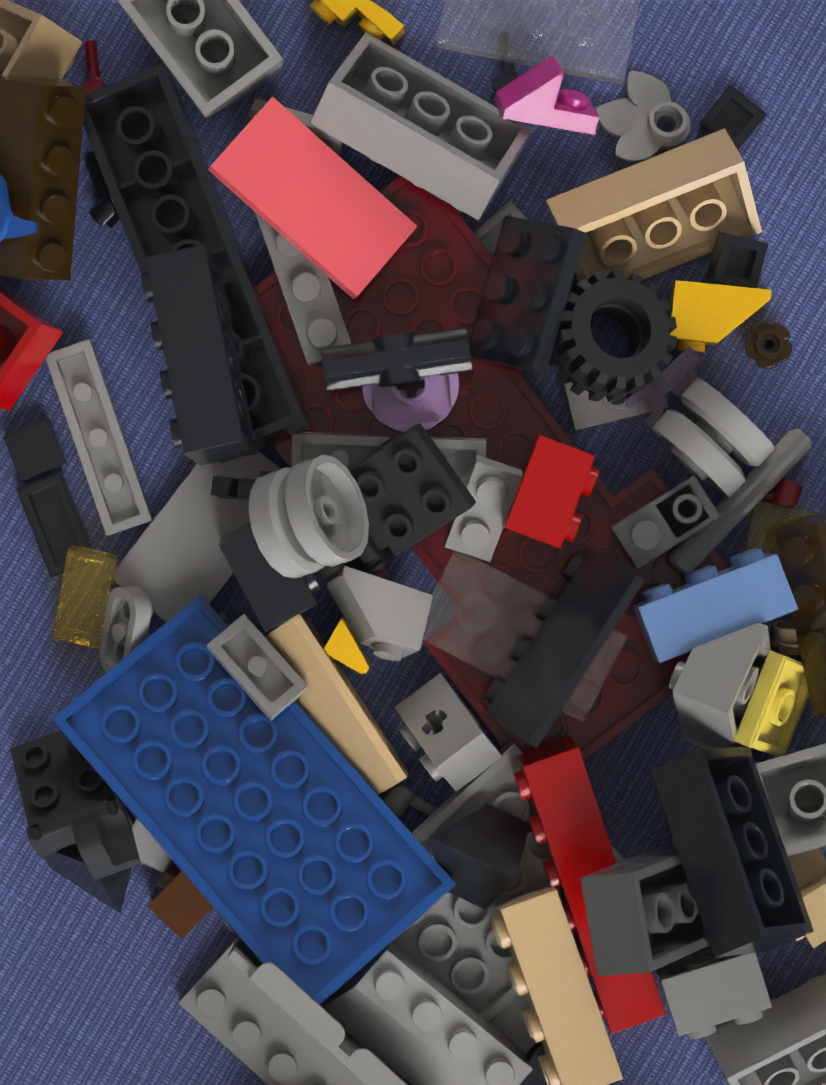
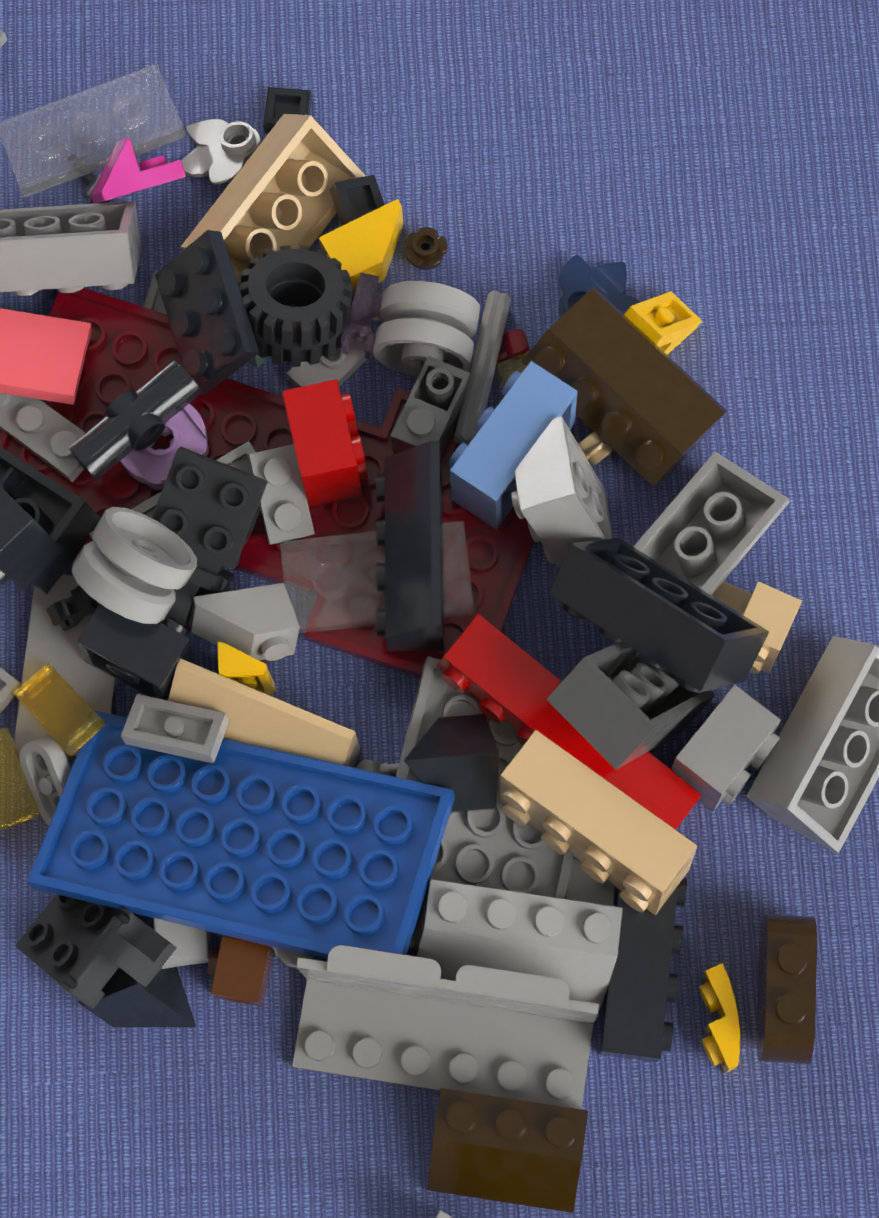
camera: 25 degrees left, 15 degrees down
(170, 573) = (59, 709): none -> clear yellow tile
(447, 733) = (369, 687): light grey brick -> none
(774, 706) = (615, 494): light yellow tile -> none

